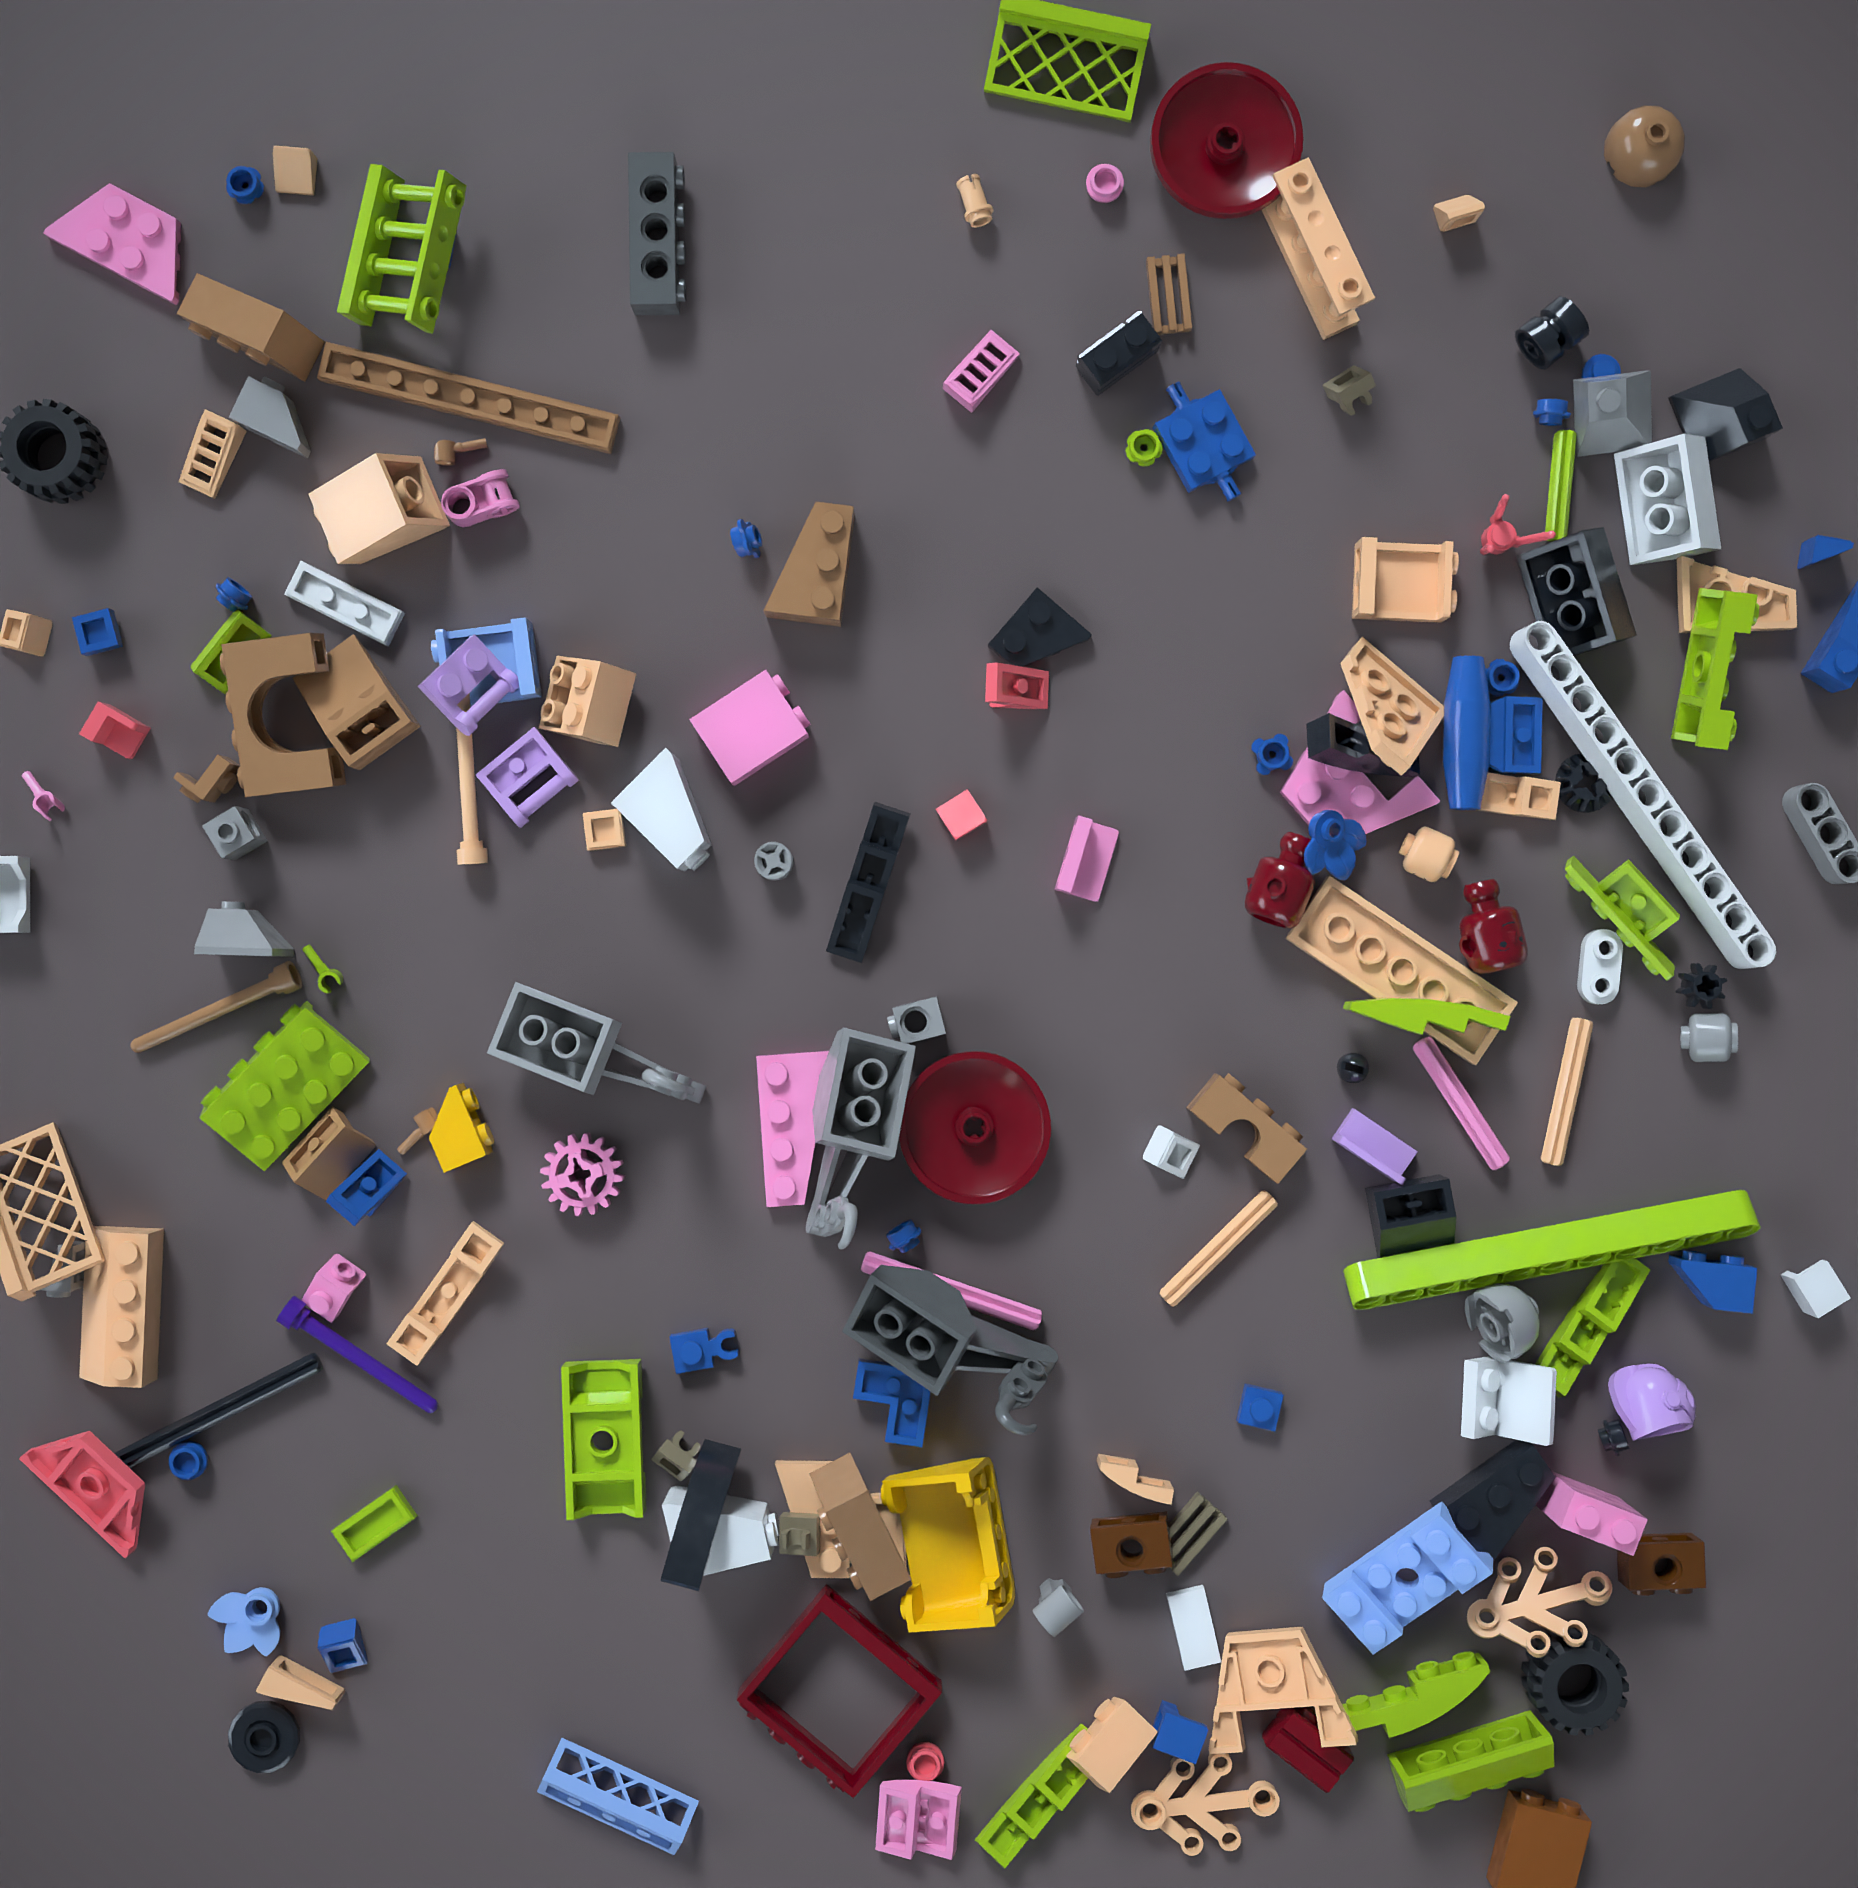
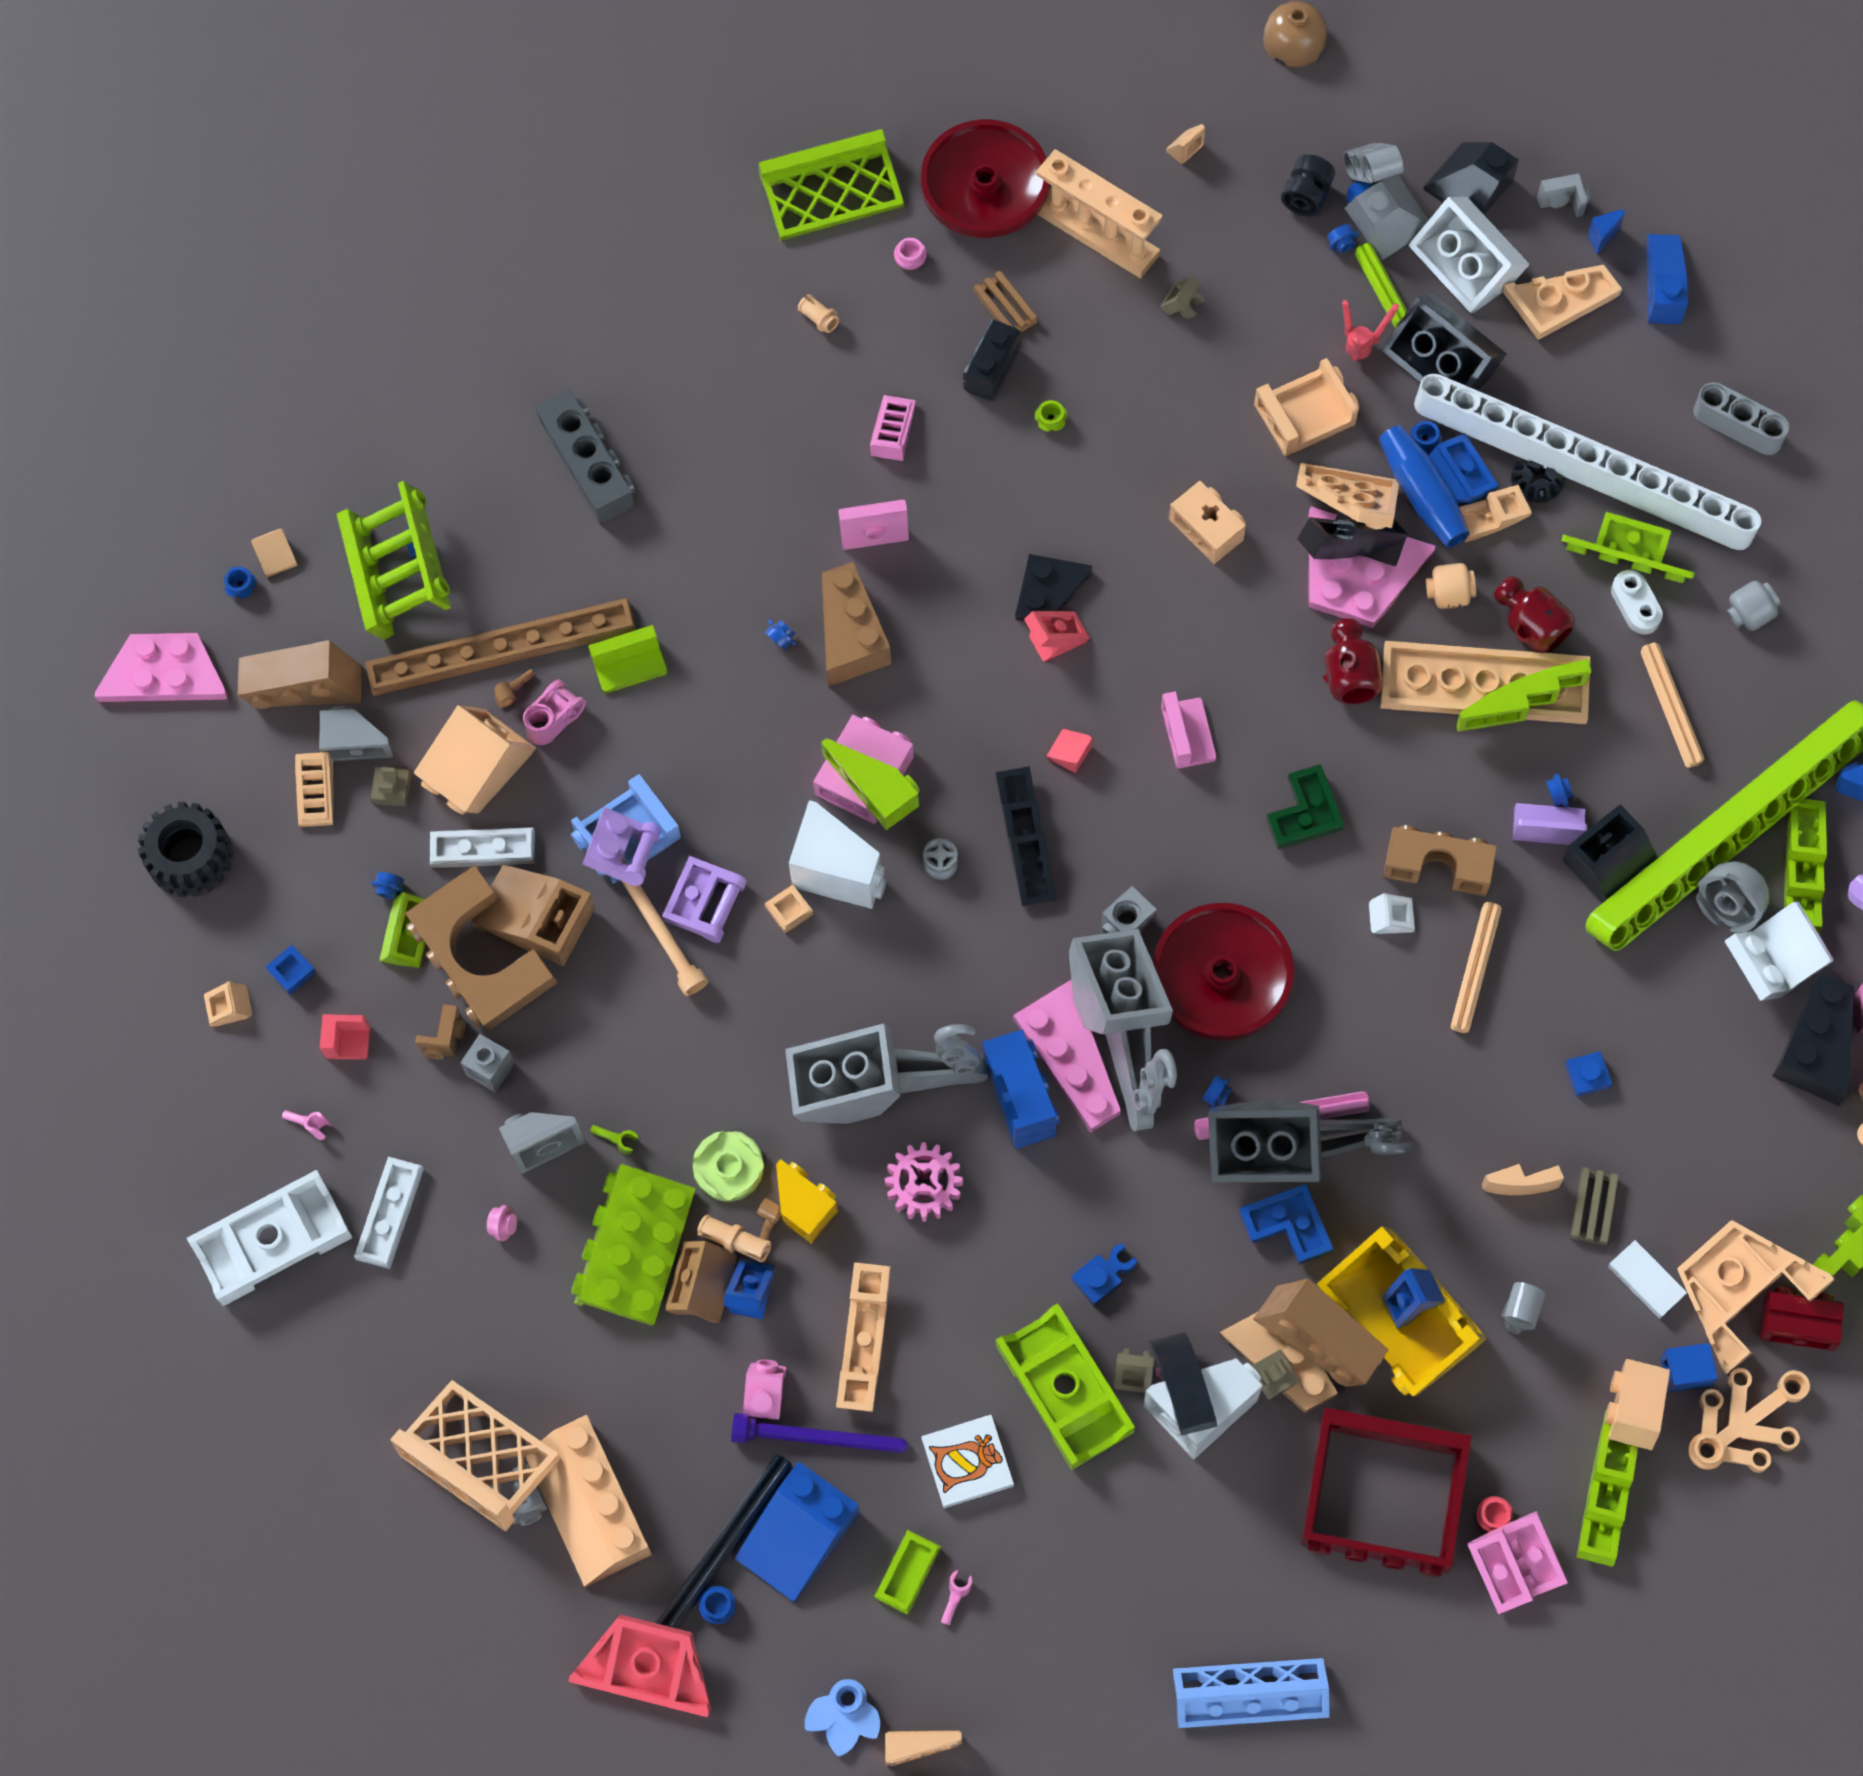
camera: 20 degrees left, 20 degrees down
(75, 926) = (389, 1212): none -> white tile
(172, 997) = (501, 1222): none -> bright pink plate
(283, 979) = (587, 1161): medium nougat piece -> none
(287, 490) = (390, 786): none -> dark tan tile
(295, 1435) = (797, 1531): none -> blue slope
(342, 1645) = (938, 1695): blue slope -> none
(378, 1131) = (734, 1238): none -> light nougat pin
(402, 1570) = (955, 1597): none -> bright pink hand
(412, 1054) = (728, 1166): none -> yellowish green tile
(481, 1453) = (967, 1461): none -> white tile
(584, 483) = (627, 659): none -> lime panel
(587, 700) = (721, 815): light nougat slope -> none
(720, 1136) = (1020, 1088): none -> blue wedge
(745, 767) = (875, 783): none -> lime slope
(896, 475) = (873, 524): none -> bright pink plate
(964, 1542) = (1410, 1295): none -> blue slope
(1148, 1529) = (1561, 1213): reddish brown brick -> none
(1158, 1013) = (1312, 816): none -> dark green plate
(1204, 441) = (1094, 389): blue plate -> none
(1217, 636) = (1220, 531): none -> light nougat brick
(1279, 746) = (1285, 571): blue plate -> none
(1333, 844) = (1373, 613): blue plate -> none
(1352, 1076) = (1495, 781): black hinge -> none
(1380, 1603) = (1783, 1169): light blue piece -> none
(1404, 1121) = (1560, 790): none -> blue plate
(1461, 1103) = (1596, 756): bright pink axle -> none
(1632, 349) = (1373, 162): none -> light grey beam
(1706, 994) = (1715, 566): black gear -> none
(1707, 660) = (1589, 379): lime piece -> none
(1804, 482) = (1563, 190): none -> light grey bracket

